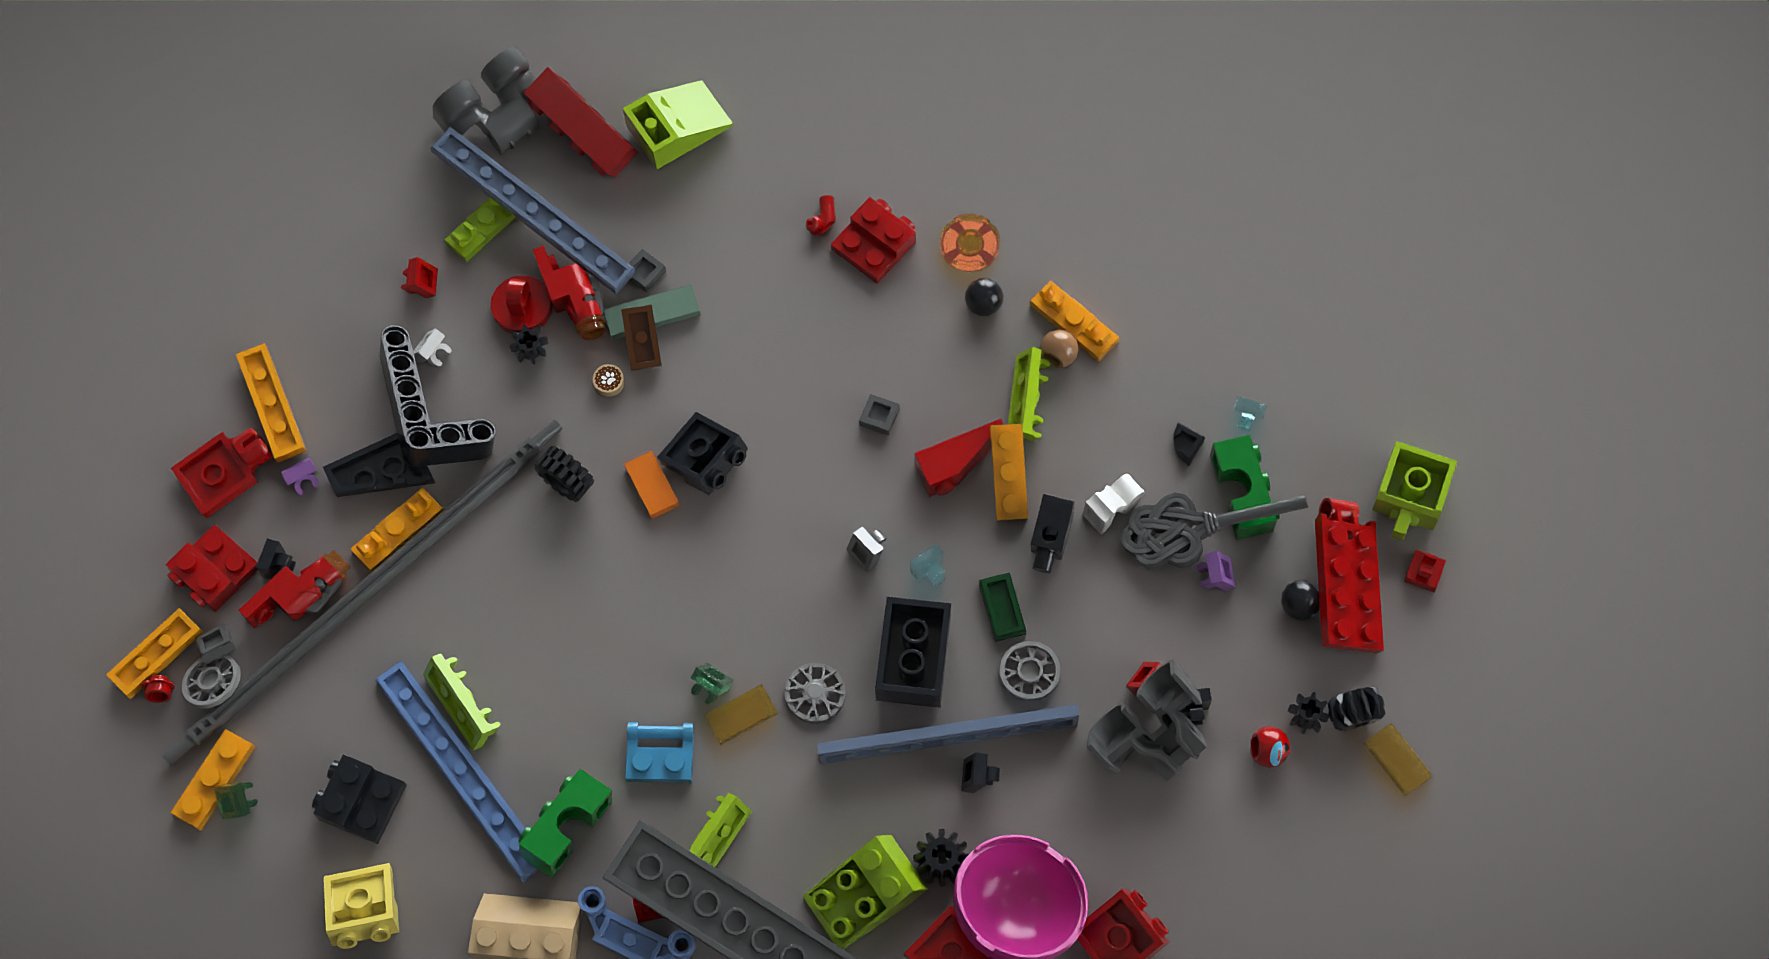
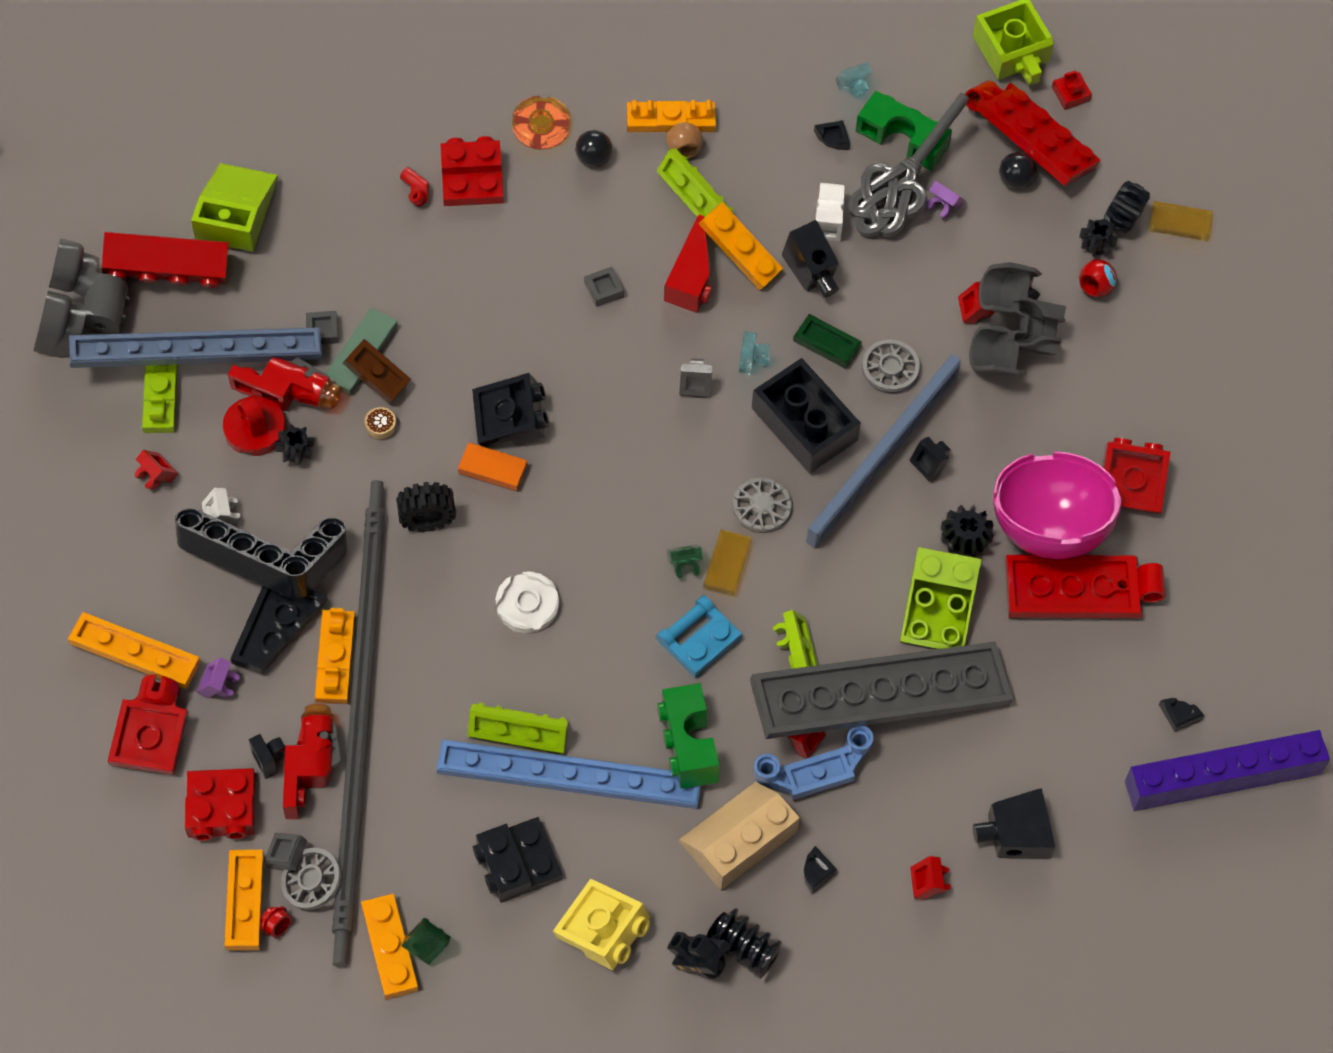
camera: 50 degrees left, 5 degrees down
(568, 612) = (527, 602): none -> white tile

